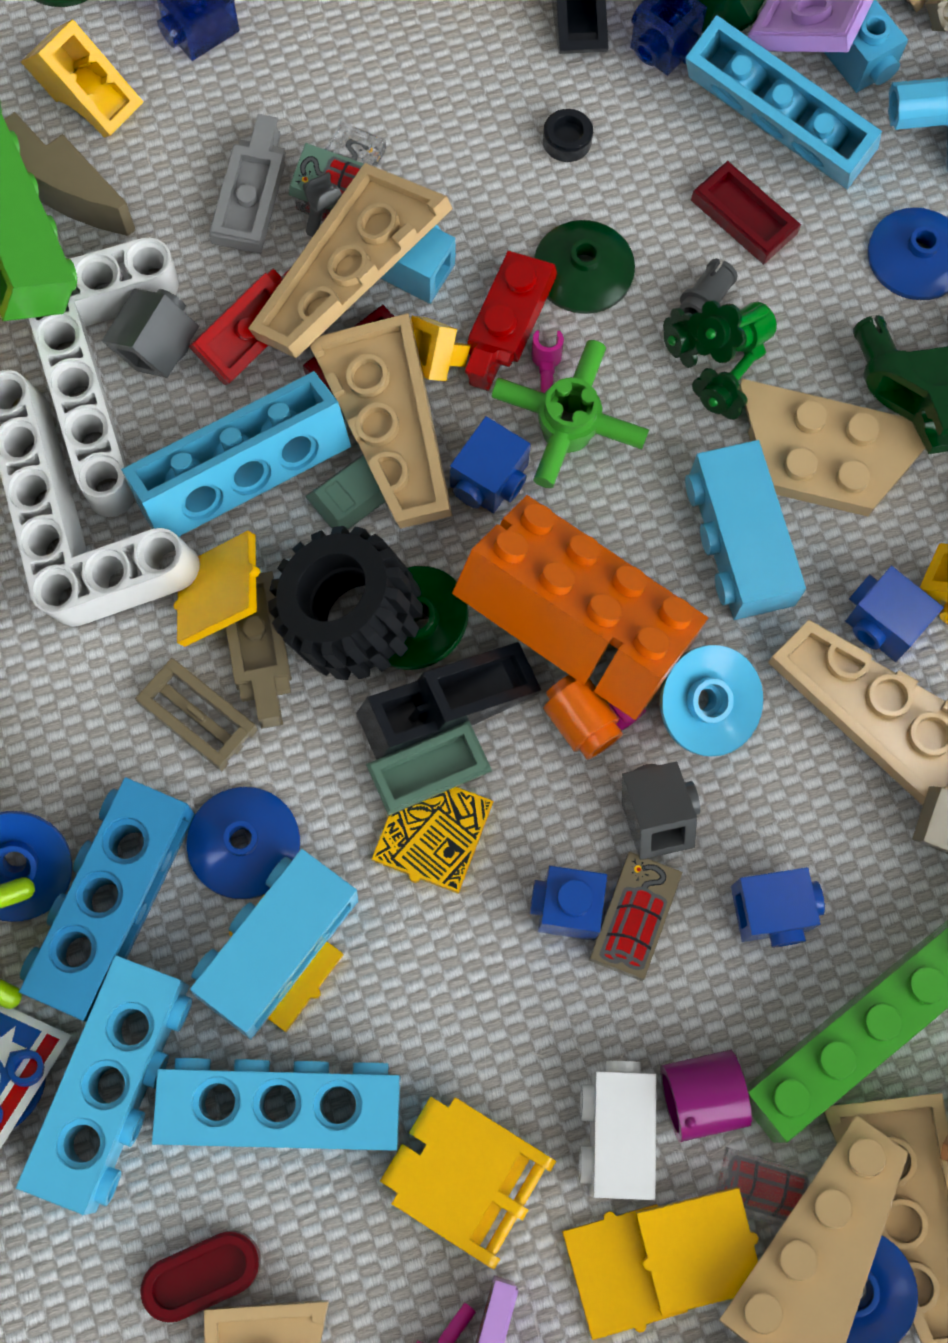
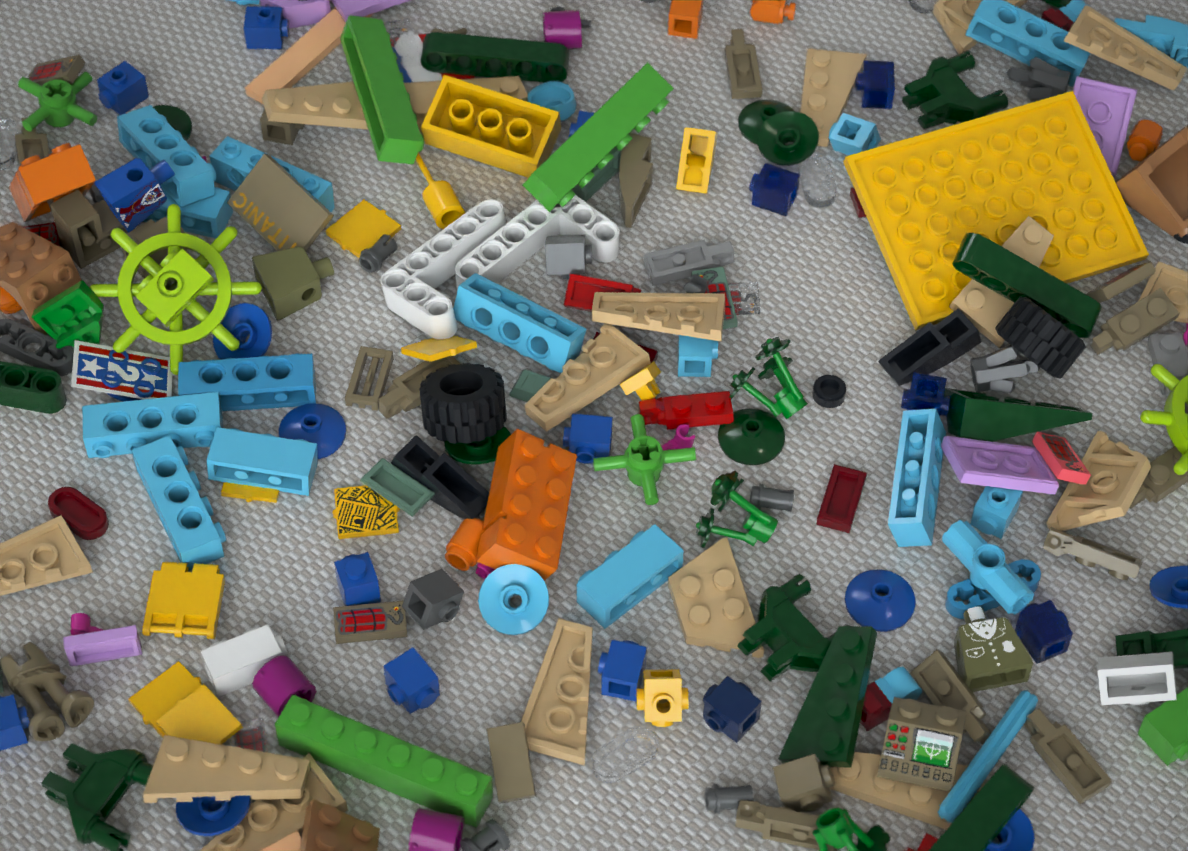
camera: 65 degrees right, 20 degrees down
(567, 187) = (789, 398): none -> plant

